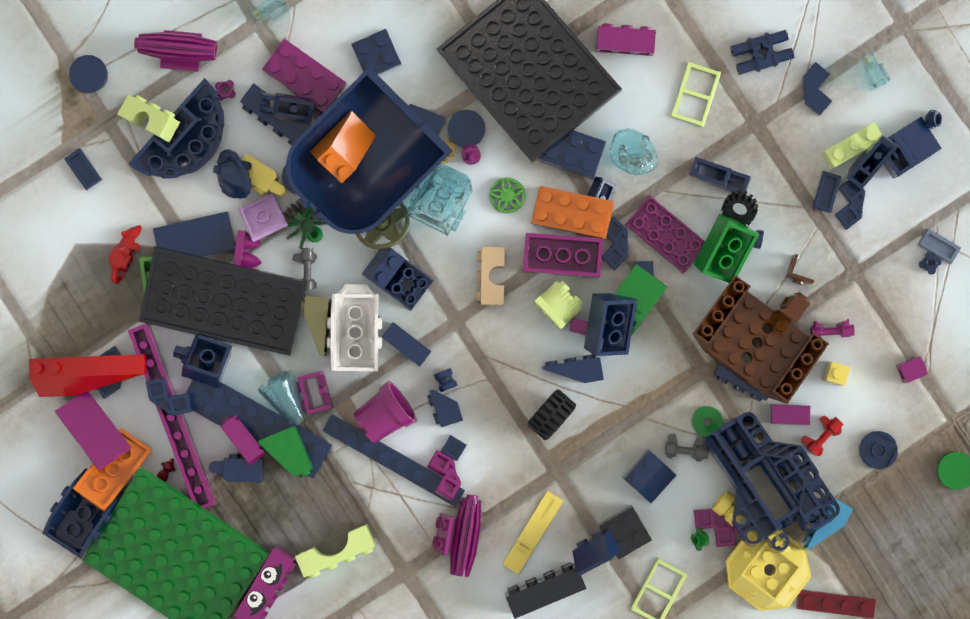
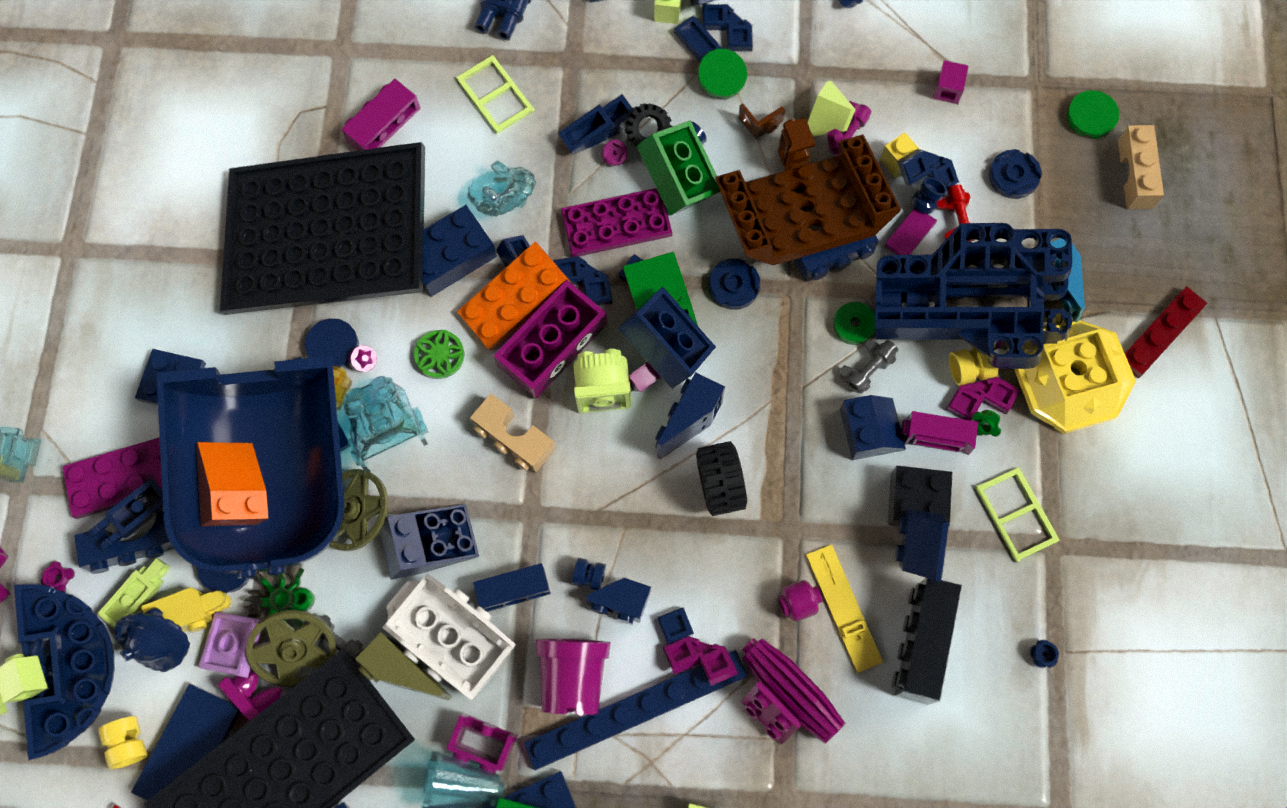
camera: 45 degrees left, 15 degrees down
(172, 203) = (122, 742): none -> light yellow wheel
(248, 140) = (134, 592): none -> yellowish green hinge
(285, 252) = (289, 646): none -> olive wheel
(517, 506) = (800, 600): none -> magenta head
(673, 516) = (940, 432): none -> magenta window
(678, 333) = (734, 284): none -> dark blue tile
(710, 199) = (614, 152): none -> magenta tile
(812, 225) = (722, 73): none -> green tile
(821, 409) = (930, 193): none -> dark blue wheel
(832, 311) = (830, 111): none -> yellowish green slope
(843, 402) = (923, 163): none -> dark blue tile
(943, 519) = (1140, 150): none -> tan arch

